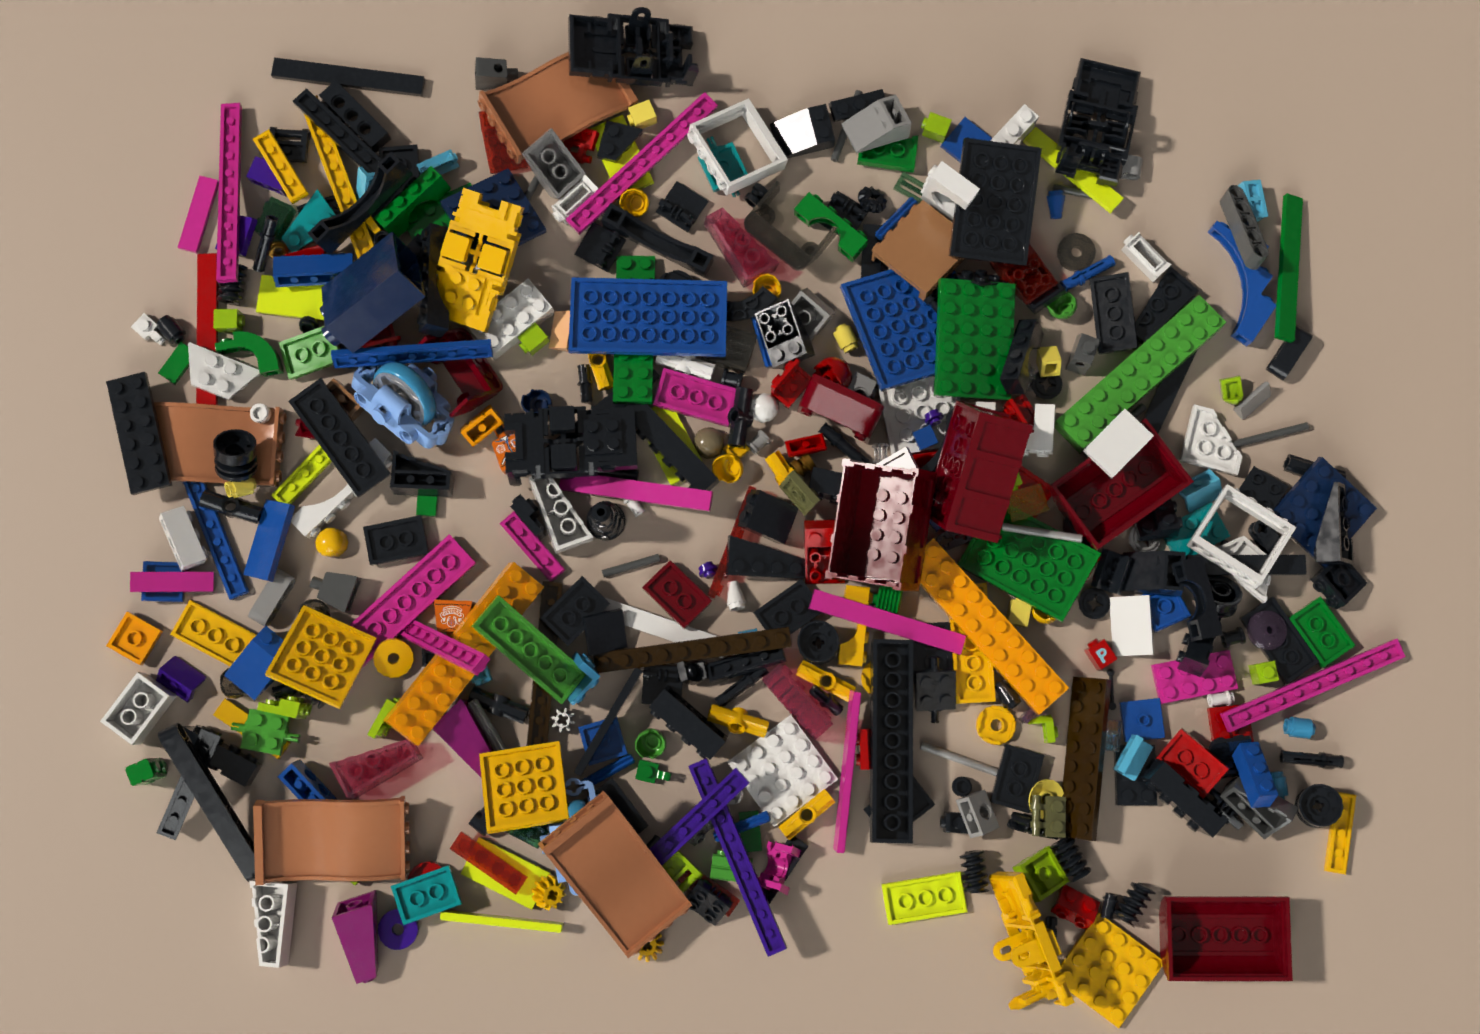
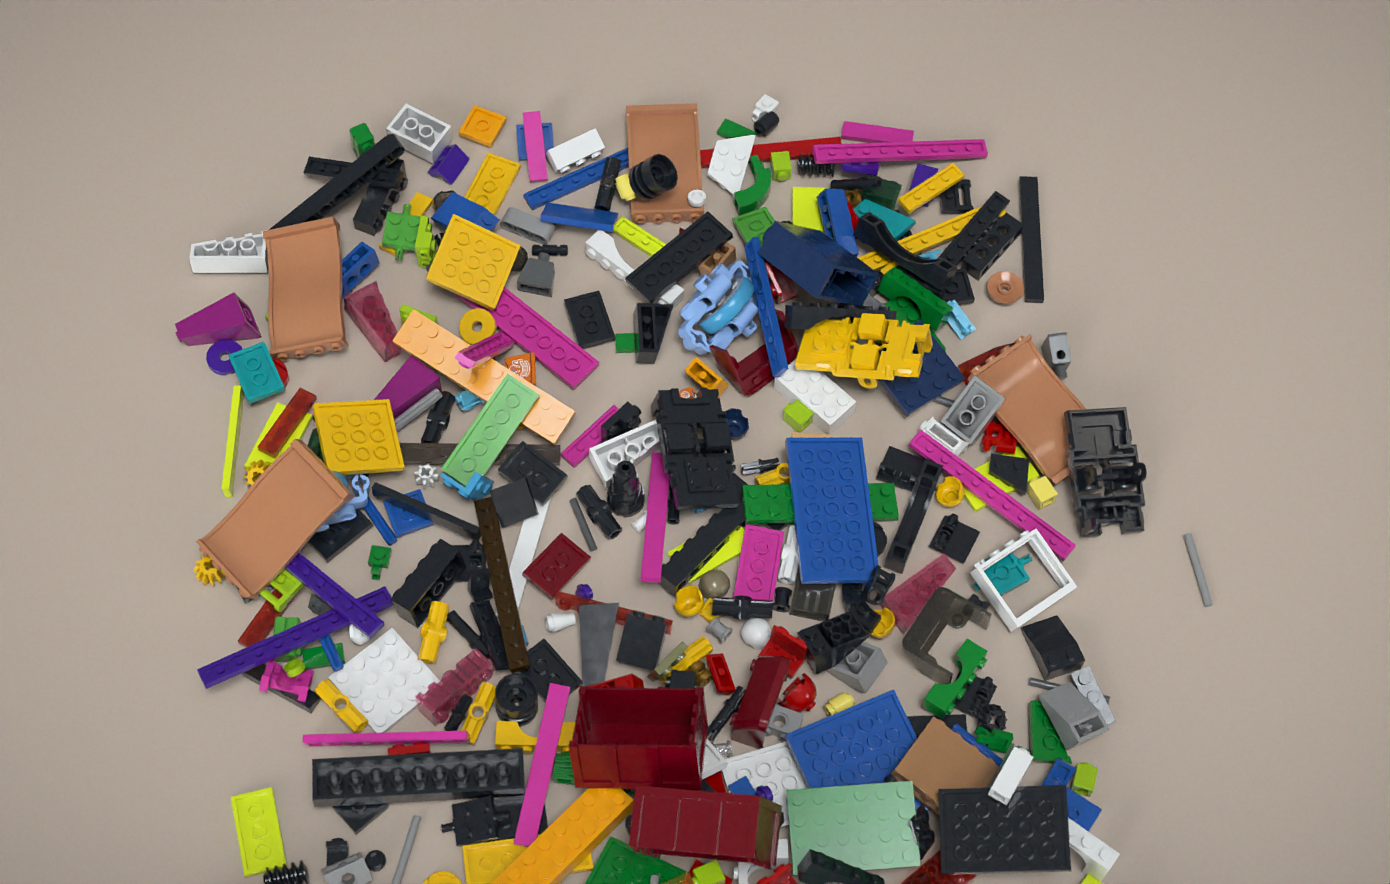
camera: 85 degrees right, 20 degrees down
(139, 433) = (666, 105): black plate -> none
(304, 575) = (551, 250): none -> black axle
(331, 542) = (583, 268): yellow hair -> none
(406, 103) = (1007, 281): none -> nougat dish
(620, 548) = (599, 511): none -> black piece
(650, 743) = (406, 553): bright green hair -> none
(707, 904) = (248, 622): black hinge -> none
(736, 283) = (879, 584): none -> black piece
(763, 860) = (294, 667): none -> lime tile
(893, 198) = (996, 740): none -> green plate
(938, 151) = (1060, 773): none -> blue brick

